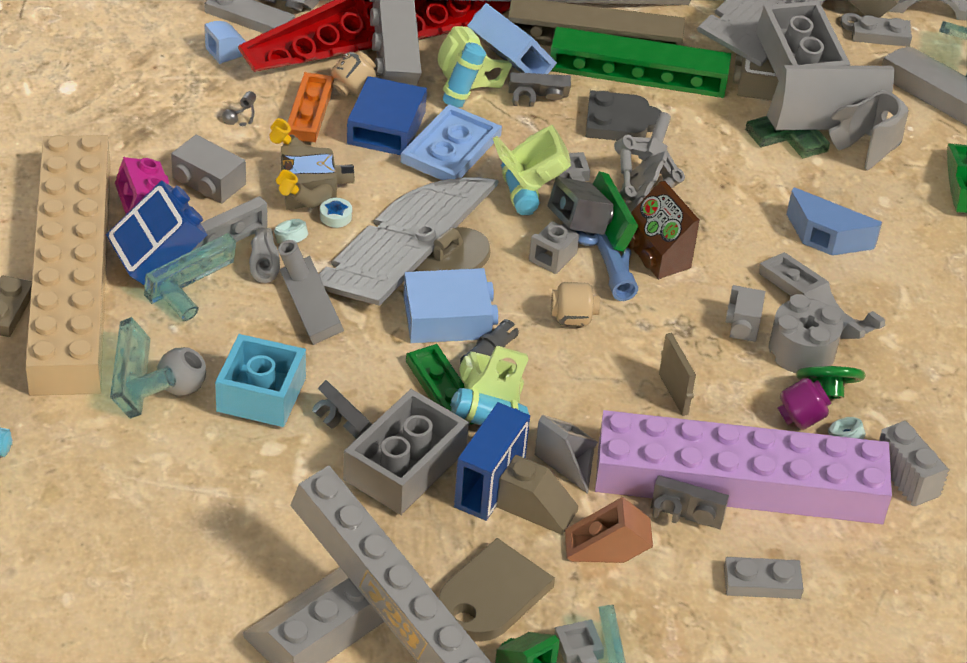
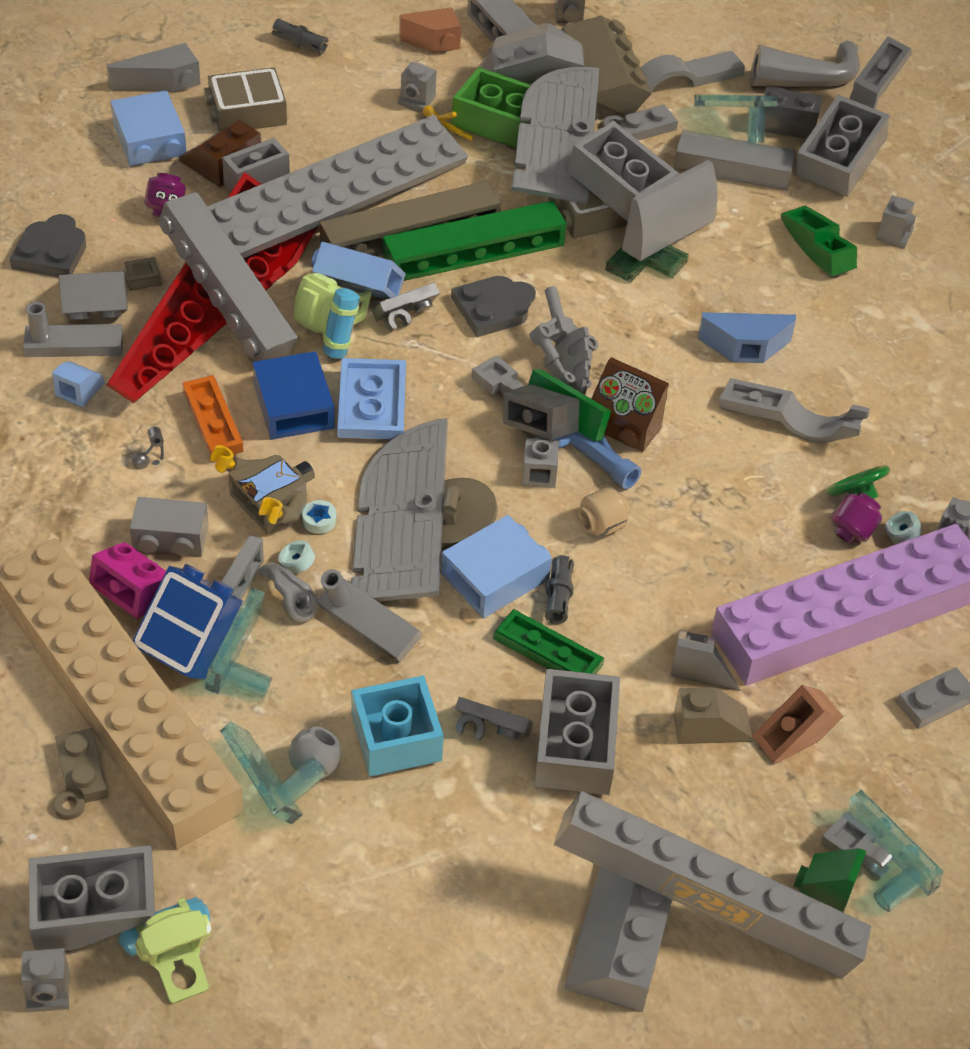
camera: 30 degrees left, 5 degrees up
(352, 72) = (232, 364): tan head -> none
(487, 382) = (605, 633): yellowish green piece -> none
(487, 457) = (661, 704): blue brick -> none
(495, 590) = (742, 821): dark tan tile -> none
(531, 166) = (475, 391): yellowish green piece -> none
(677, 374) = (742, 540): dark tan piece -> none
(688, 501) = (835, 659): flat silver plate -> none
(745, 312) = (745, 452): light grey brick -> none
(805, 333) = (810, 451): light grey brick -> none
(869, 119) = (711, 219): light grey piece -> none

